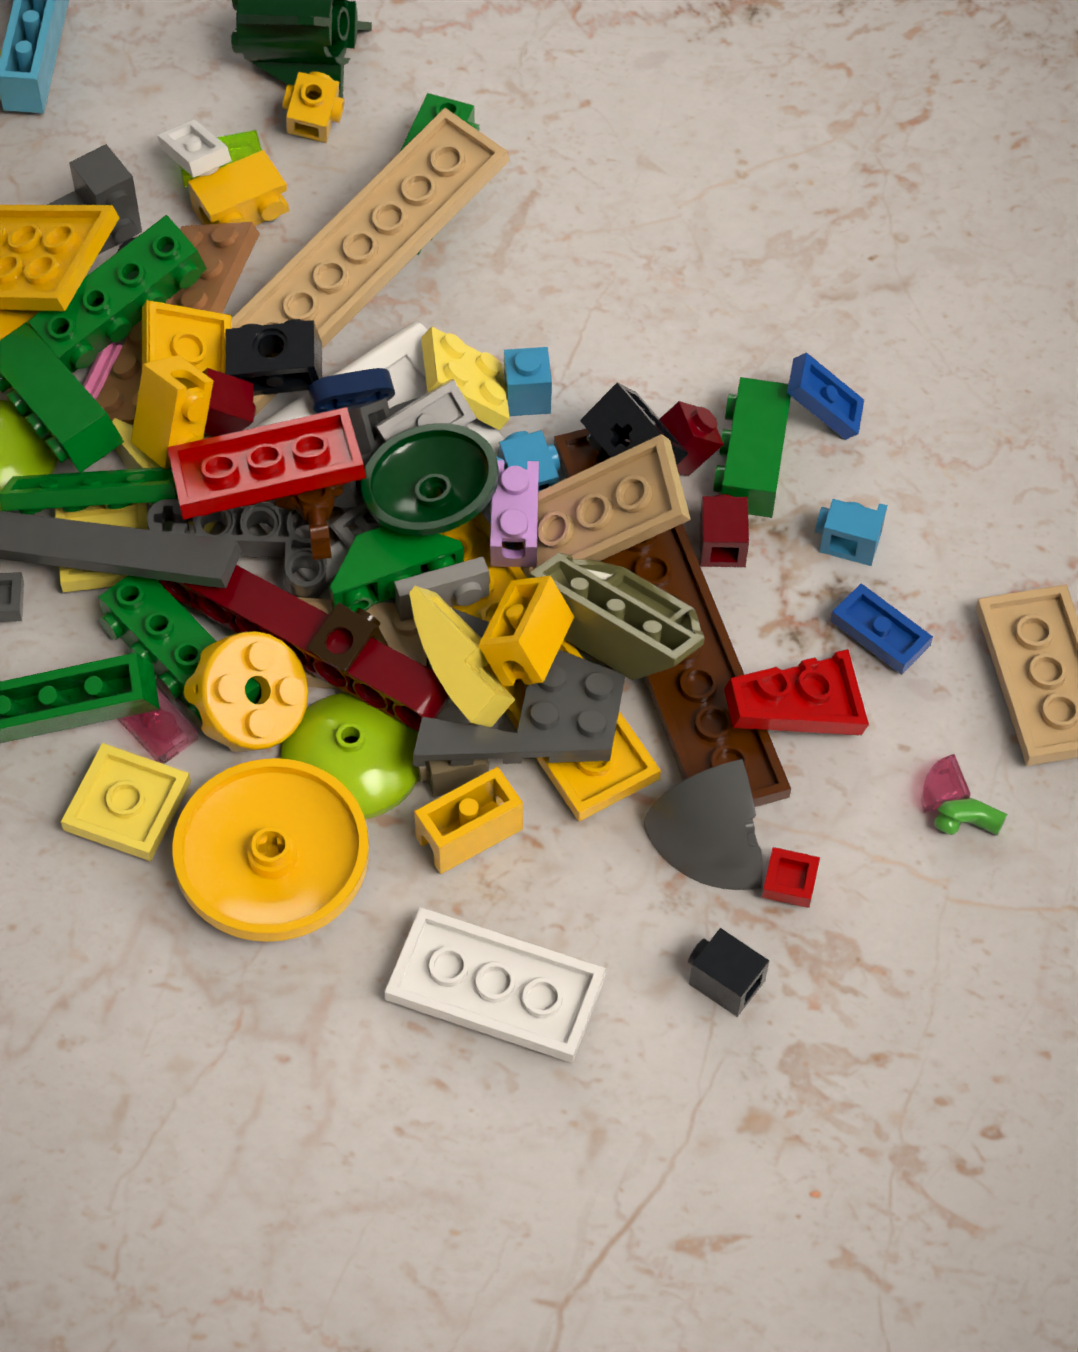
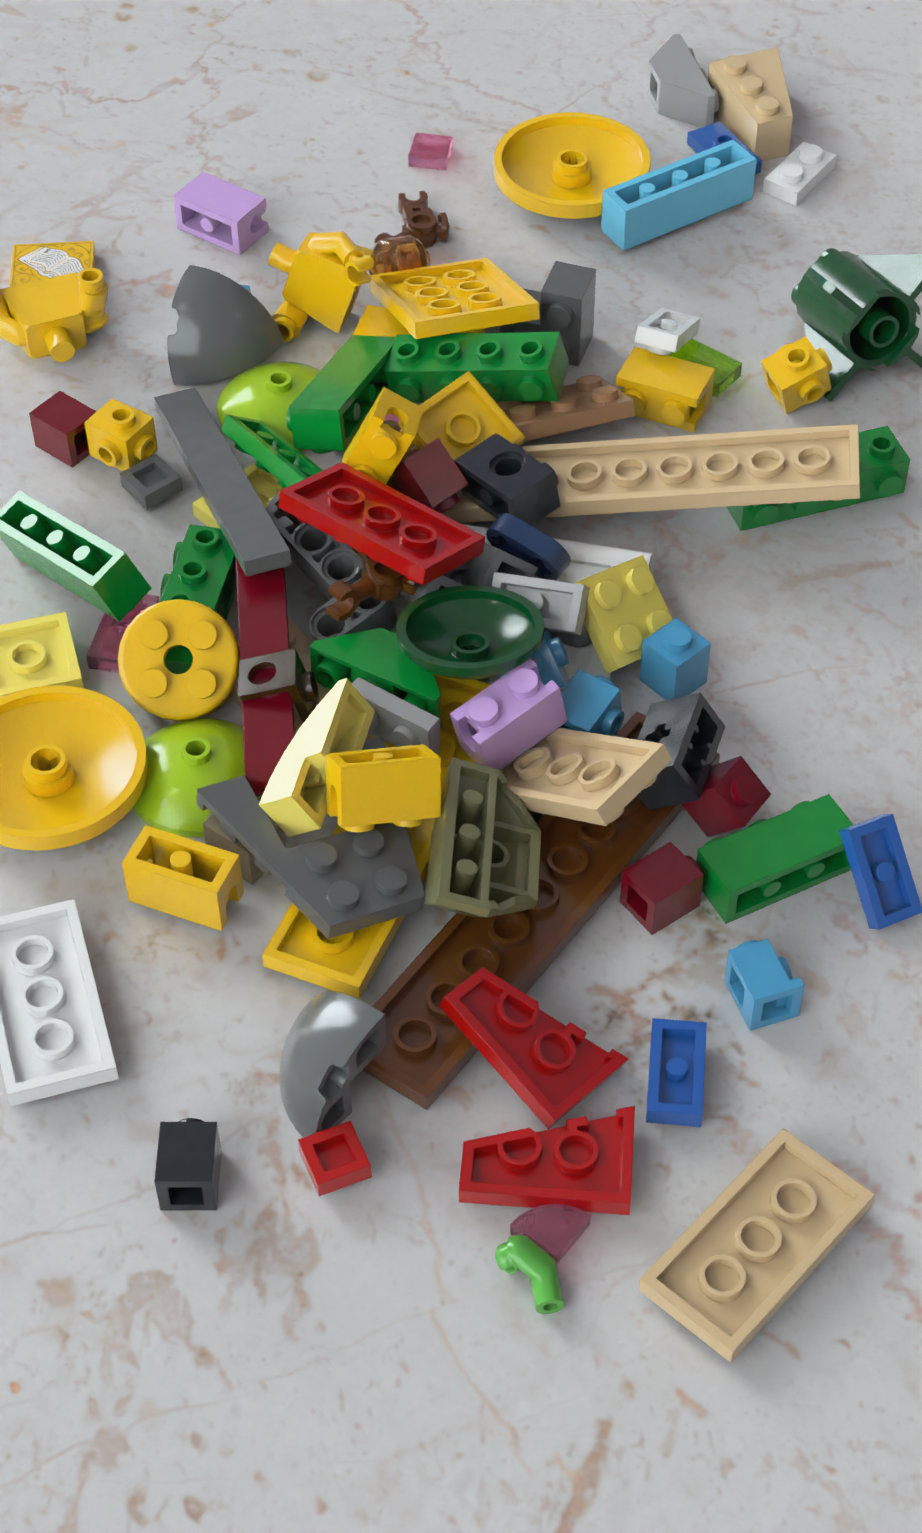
camera: 55 degrees right, 10 degrees down
(901, 748) = (567, 1165): none -> red wing

